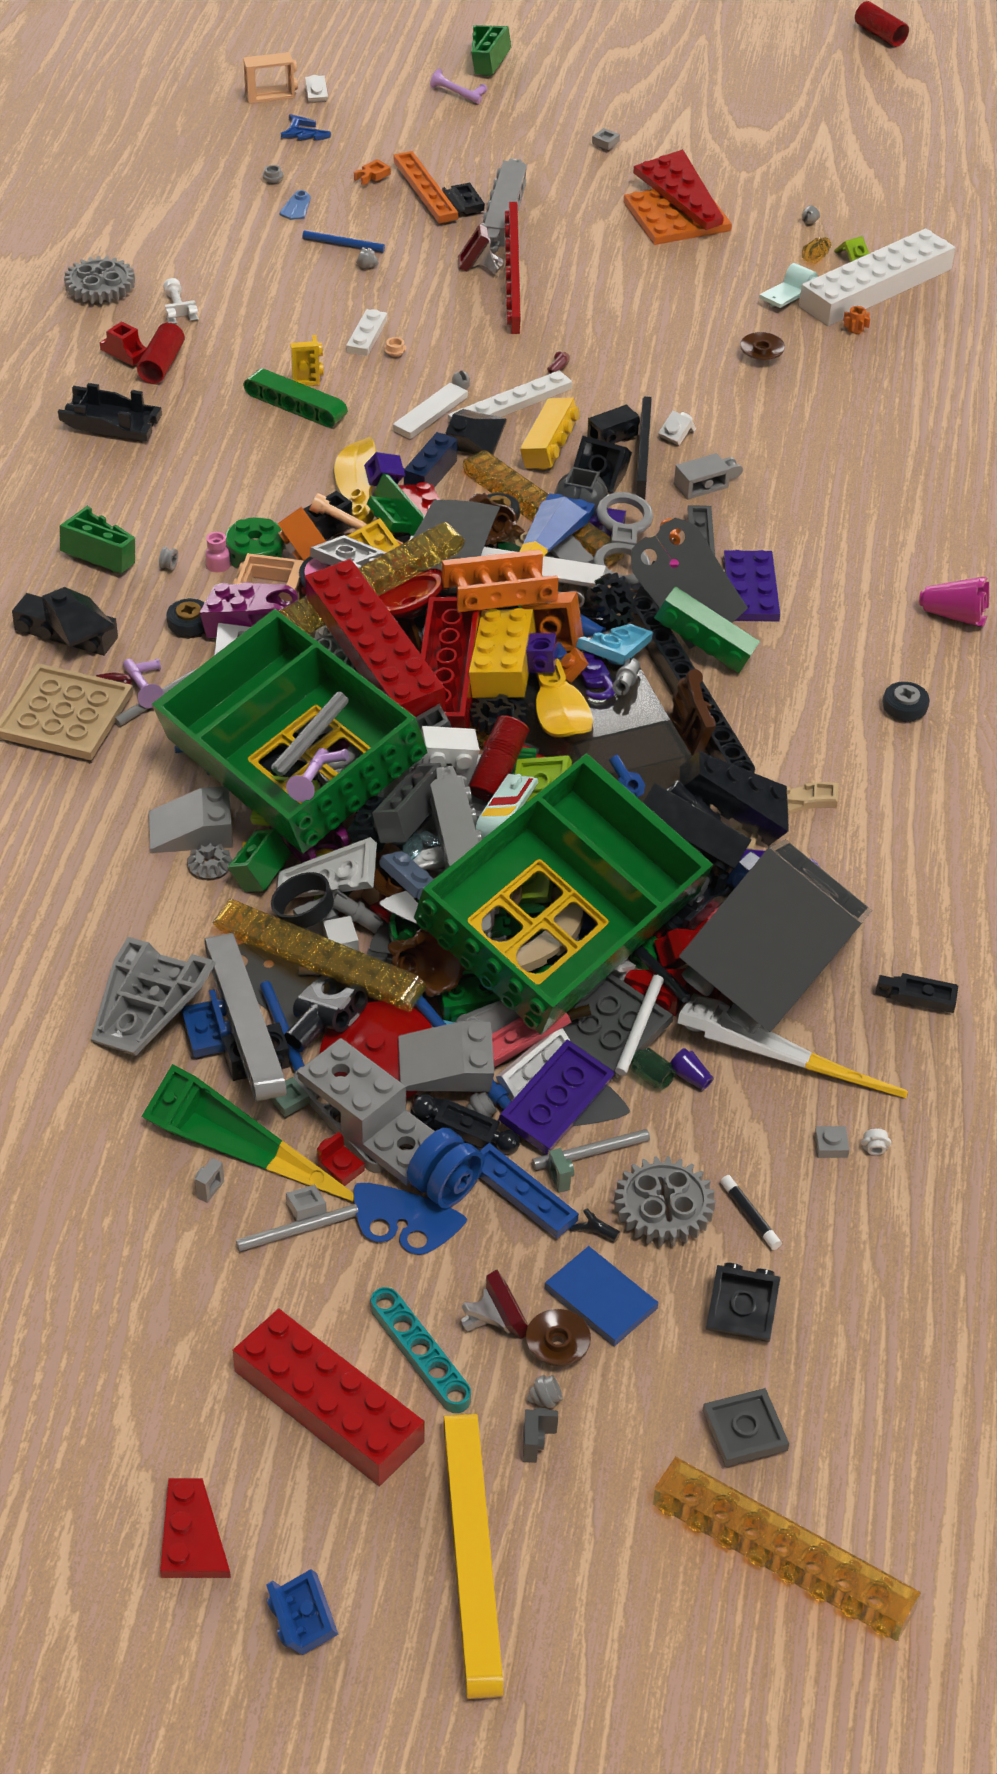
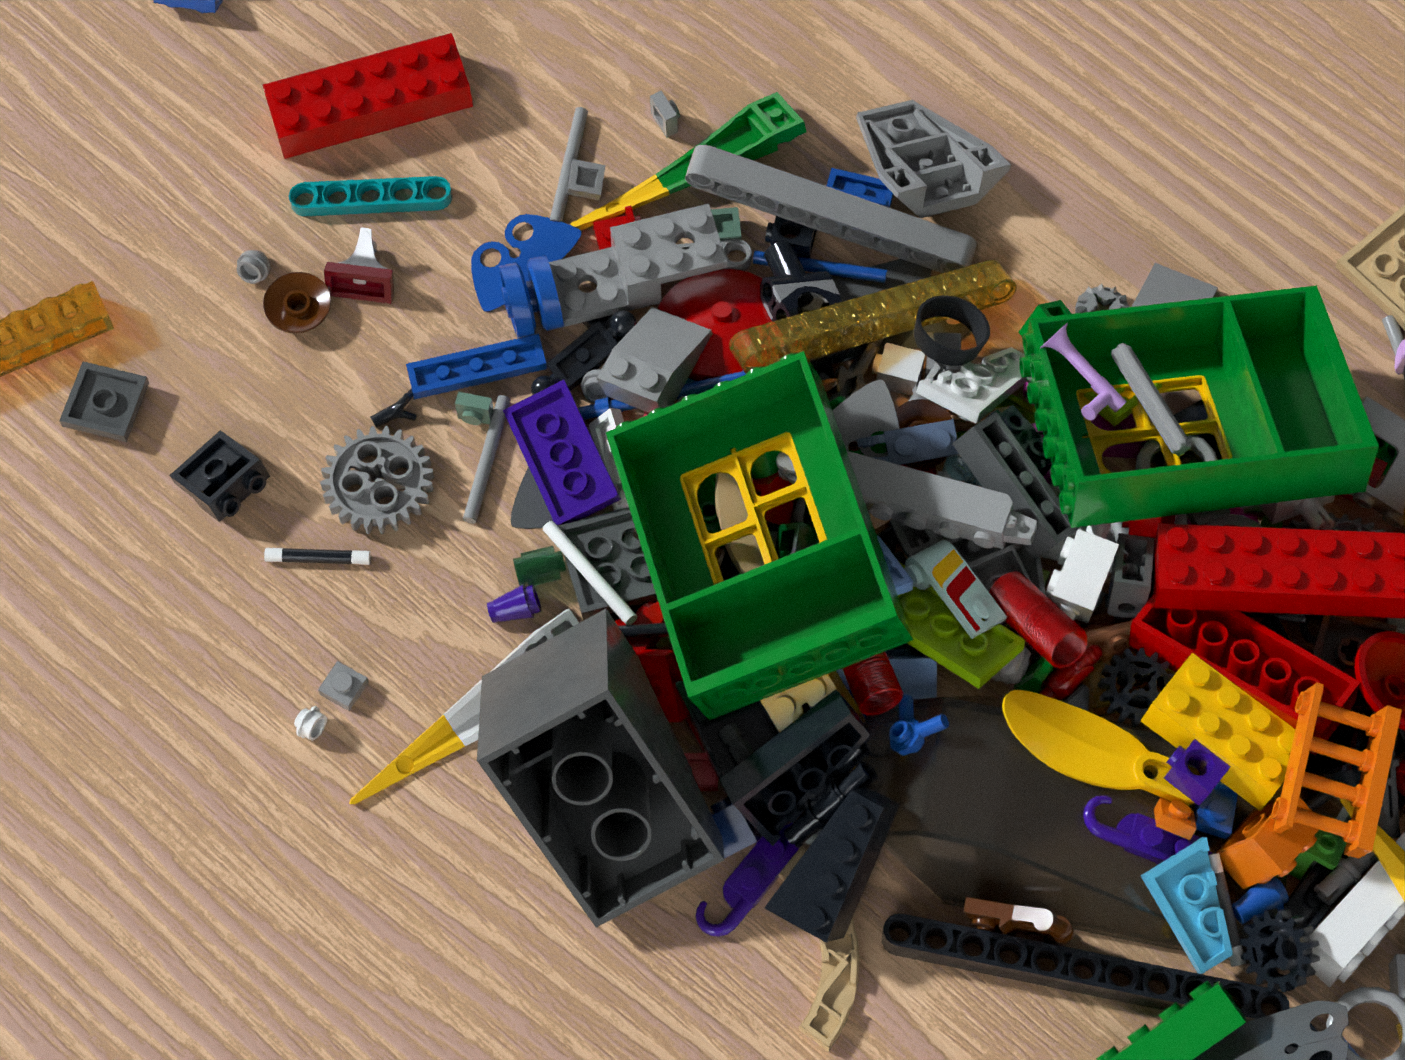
camera: 125 degrees right, 20 degrees up
(473, 1558) = (154, 131): yellow beam -> none
(536, 1425) = (220, 231): dark grey bracket -> none
(601, 1295) = (320, 370): blue tile -> none
(626, 676) = (1109, 859): light grey pin -> none
(918, 991) = (461, 908): black hinge -> none

